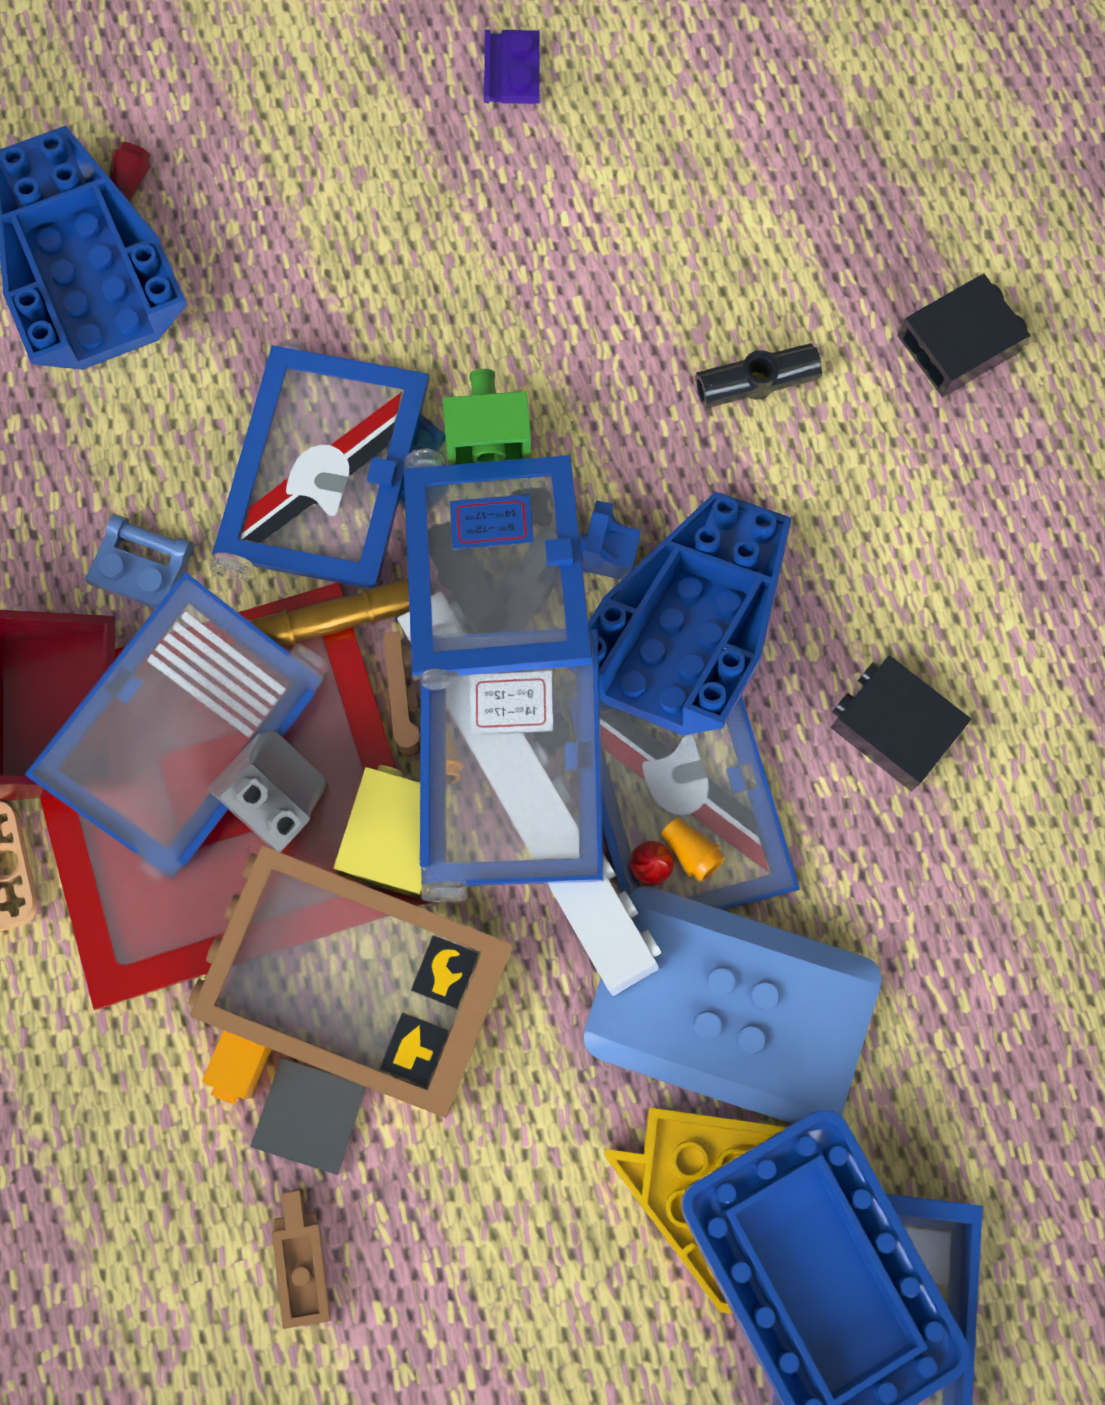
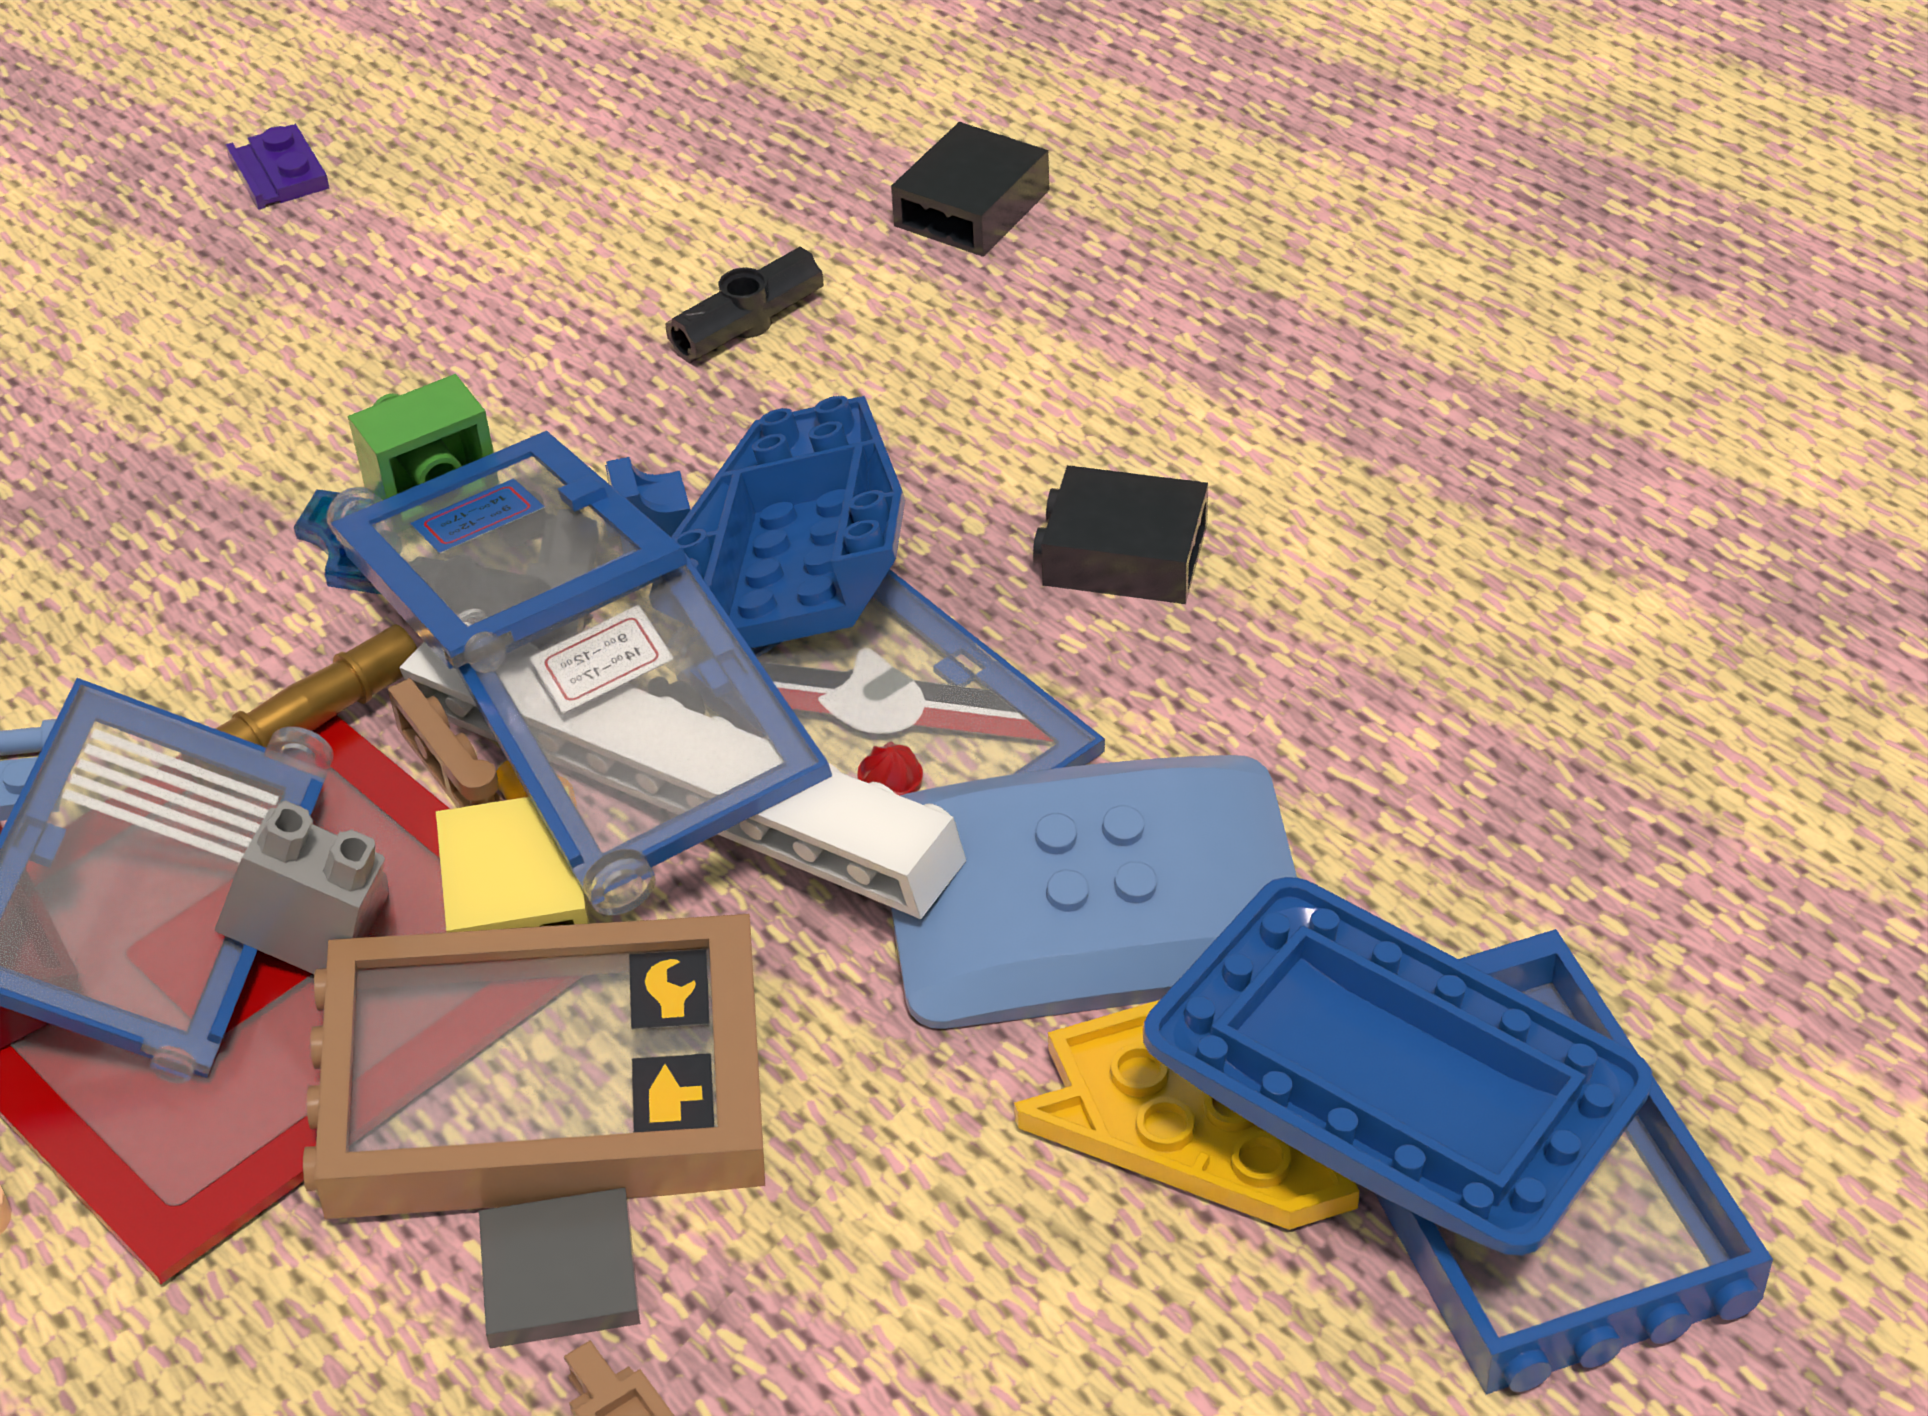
camera: 20 degrees left, 30 degrees down
(235, 1067) = (415, 1240): light orange brick -> none
(320, 468) = (215, 580): door -> none
(694, 851) = (940, 739): light orange cone -> none

